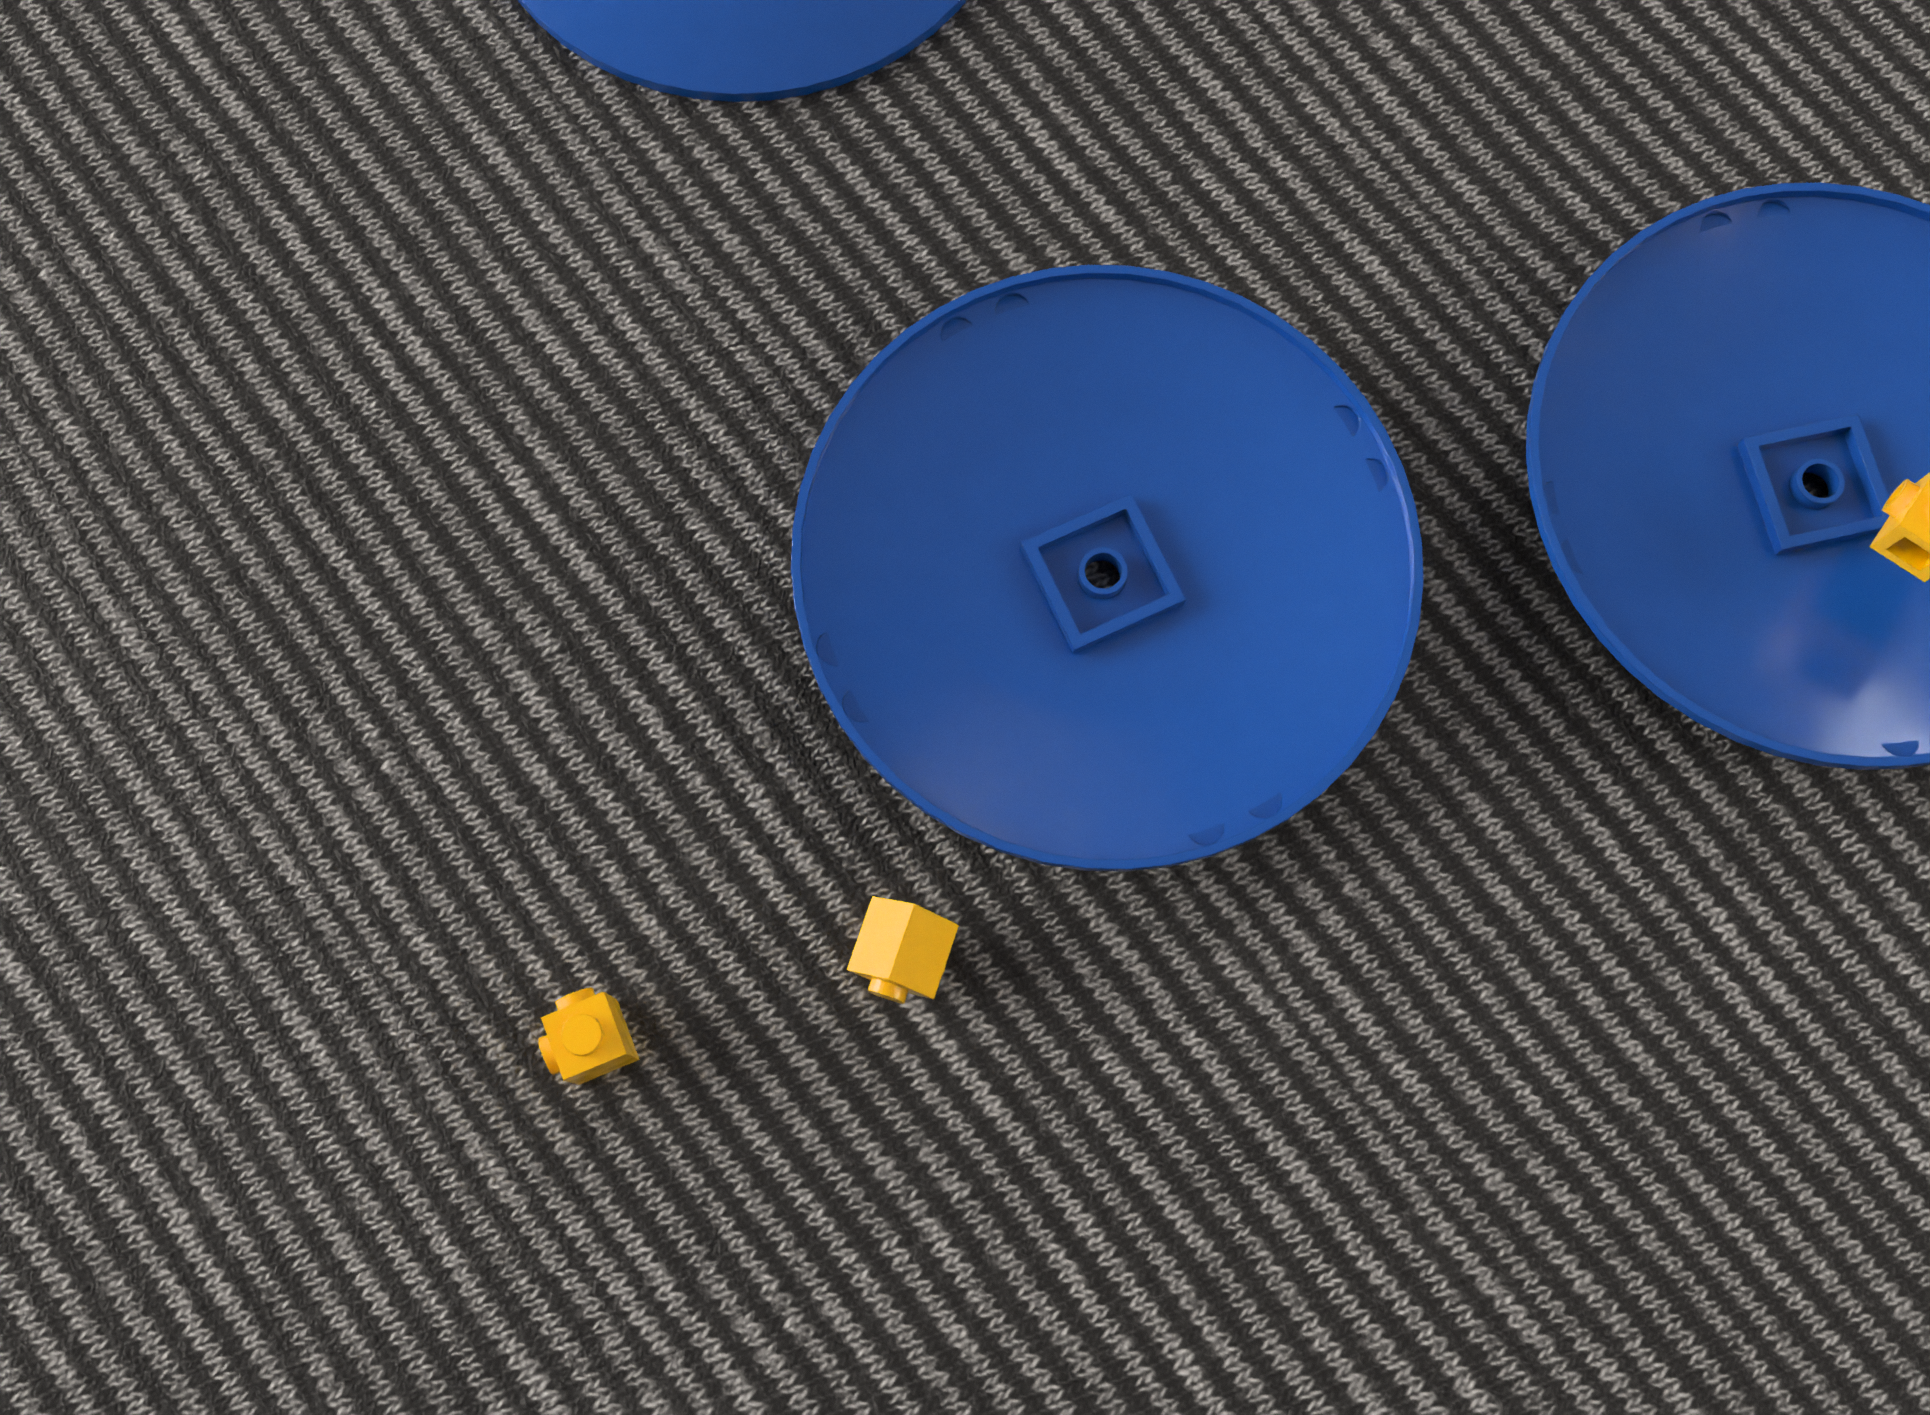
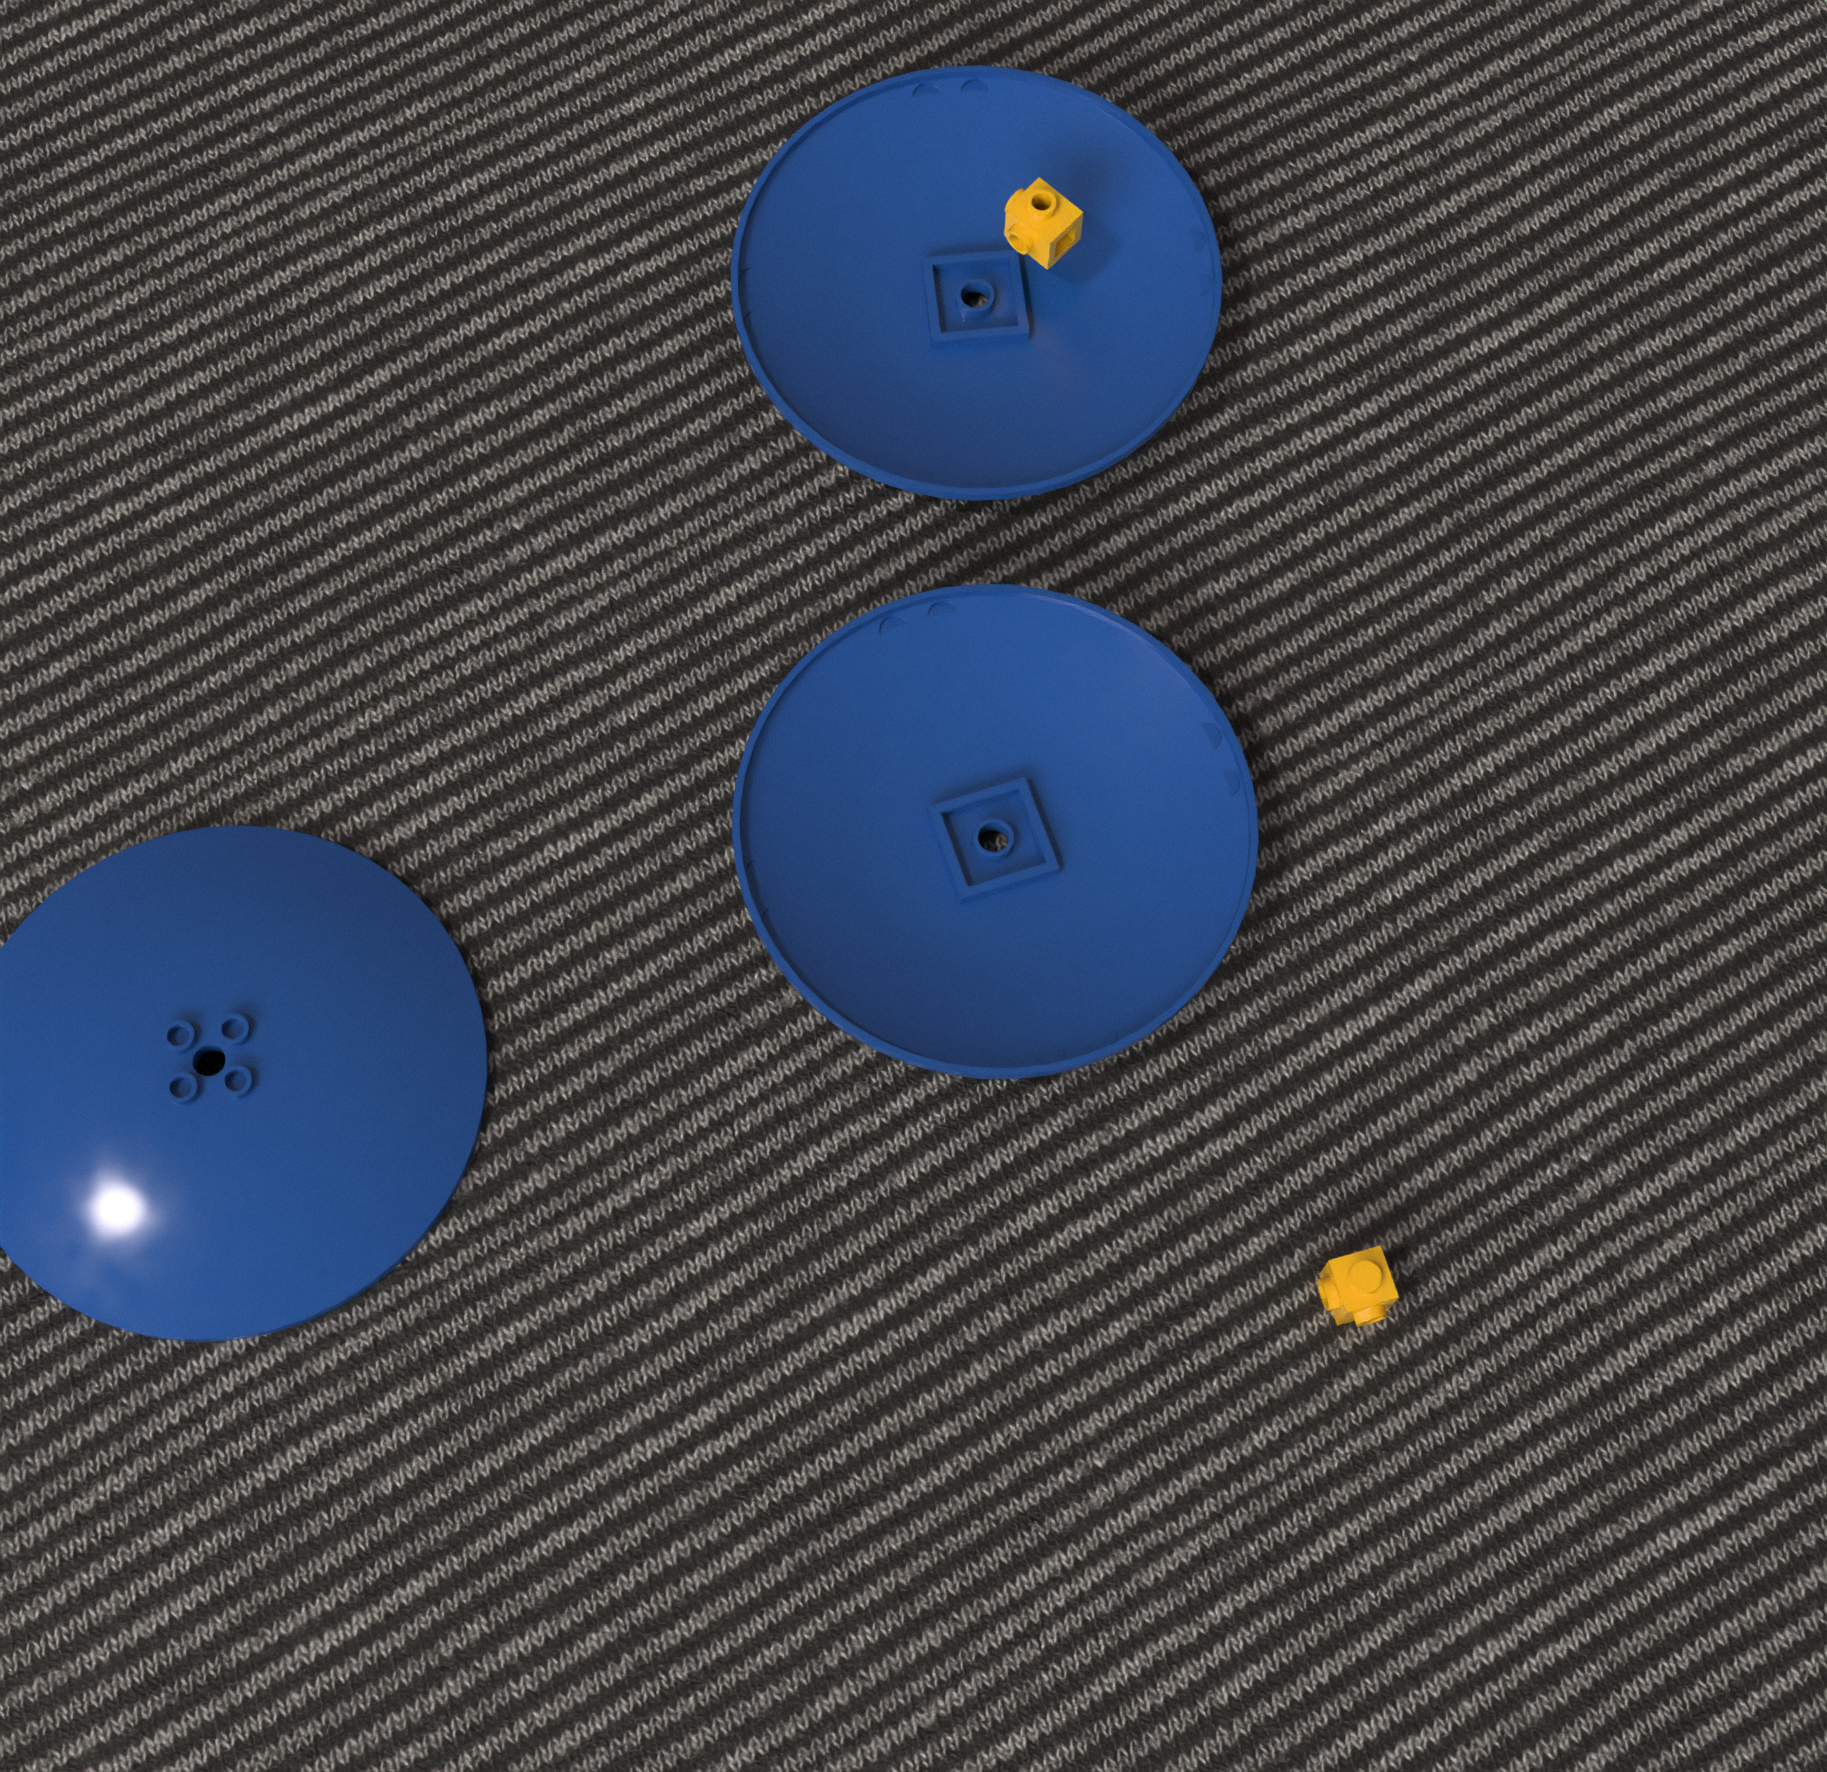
camera: 85 degrees left, 5 degrees down
(902, 949) = (1303, 1030): yellow brick -> none

